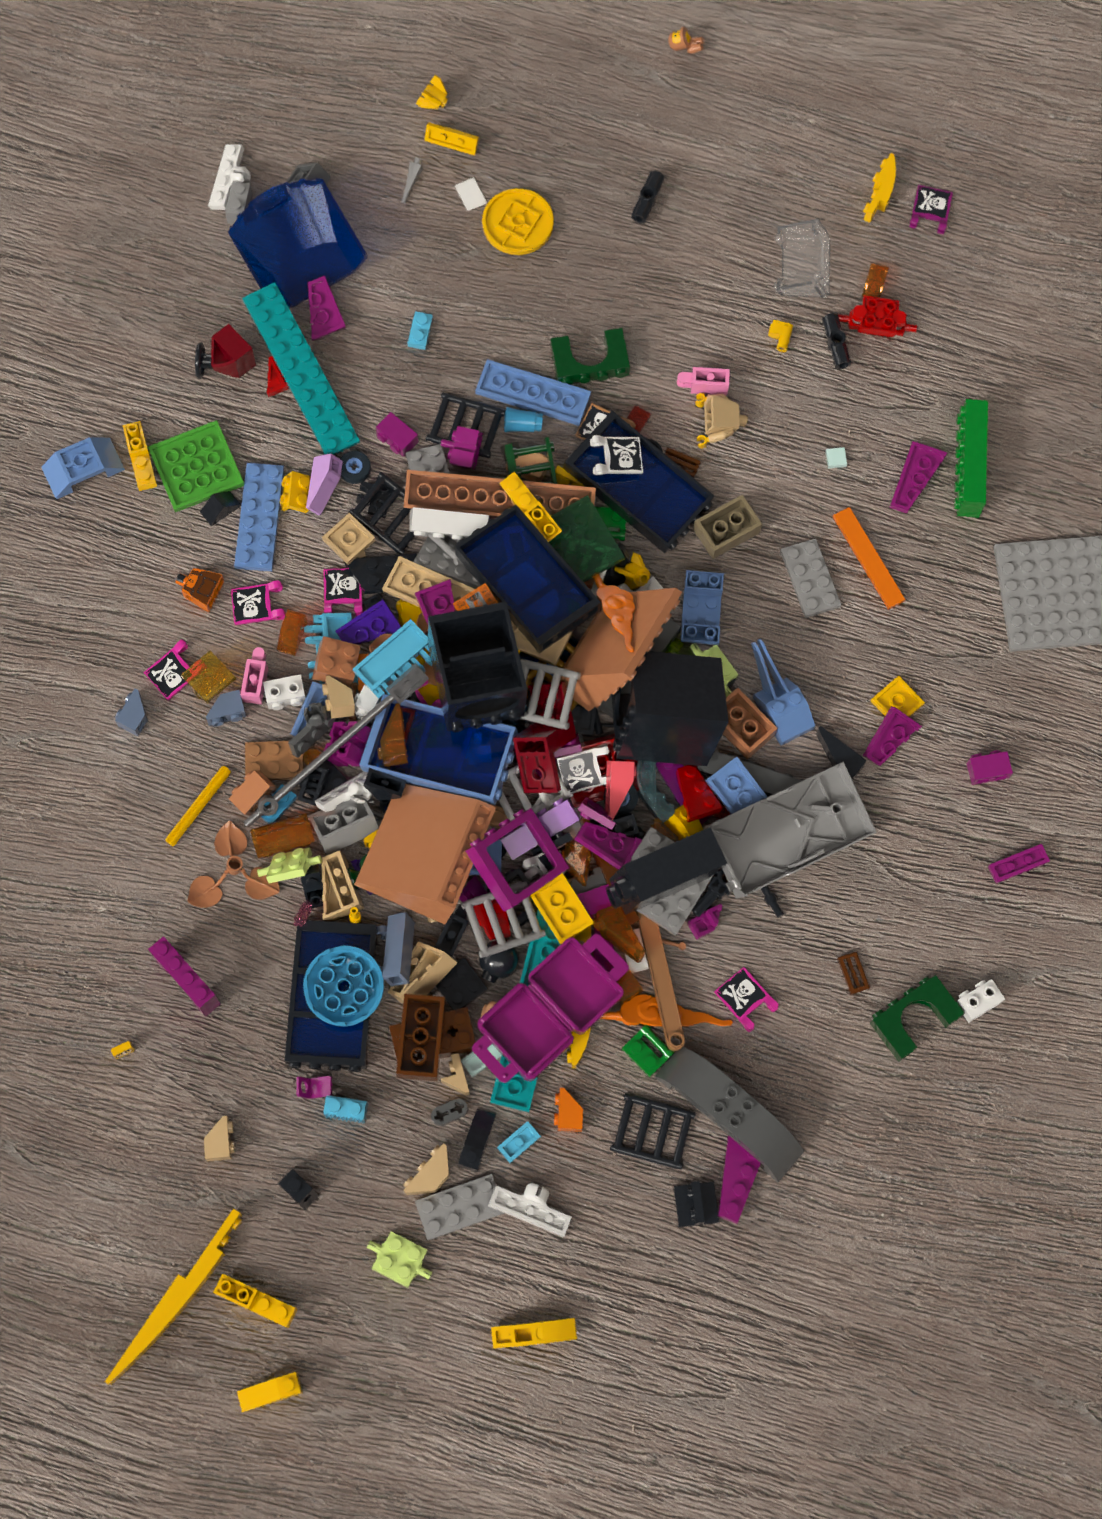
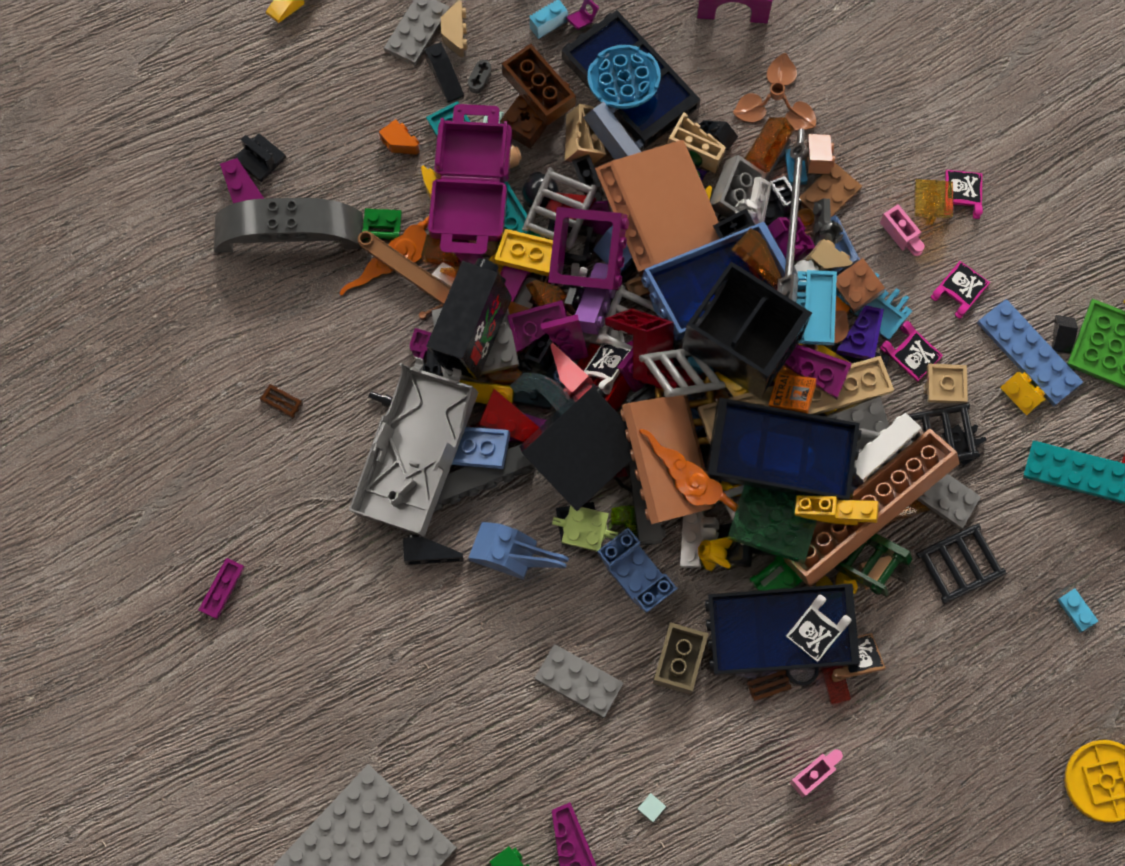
camera: 140 degrees right, 0 degrees up
(132, 715) = (956, 138): sand blue slope -> none
(198, 805) = (847, 121): yellow axle -> none
(201, 587) = (1010, 261): torso -> none
(226, 708) = (899, 194): sand blue slope -> none
(284, 692) = (872, 239): white brick -> none
(289, 865) = (742, 126): yellowish green plate -> none
(291, 632) = (914, 287): clear orange slope -> none
(302, 914) = (700, 104): clear pink axle -> none
(324, 478) = (1013, 415): lavender slope -> none
(354, 916) = (664, 133): yellow bar -> none
(359, 474) = (1005, 461): black bush -> none
(374, 571) = (907, 383): black wing -> none
(396, 434) = (1002, 503): magenta brick -> none
(457, 1081) = (492, 97): tan slope -> none
(461, 985) = (549, 154): black plate -> none
(464, 447) = (938, 532): magenta brick -> none
(518, 1142) = (415, 95): medium azure plate -> none
(522, 421) = (922, 602): dark azure plant -> none
(530, 1208) = (368, 60): white plate -> none
(533, 392) = (939, 637): medium blue plate -> none
(570, 371) = (902, 722): dark green arch -> none
(668, 1111) = (330, 156): black bar -> none
(721, 417) = (774, 751): tan torso -> none
(743, 995) = (347, 317): flag -> none
(747, 725) = (524, 507): nougat brick -> none
(868, 558) = (548, 741): orange tile -> none
(890, 735) = (404, 606): magenta wing -> none
(897, 695) = (422, 638): yellow tile -> none
(929, 993) = (211, 430): dark green arch -> none
(980, 1000) = (169, 455): white brick -> none
(989, 767) = (305, 645): magenta brick -> none

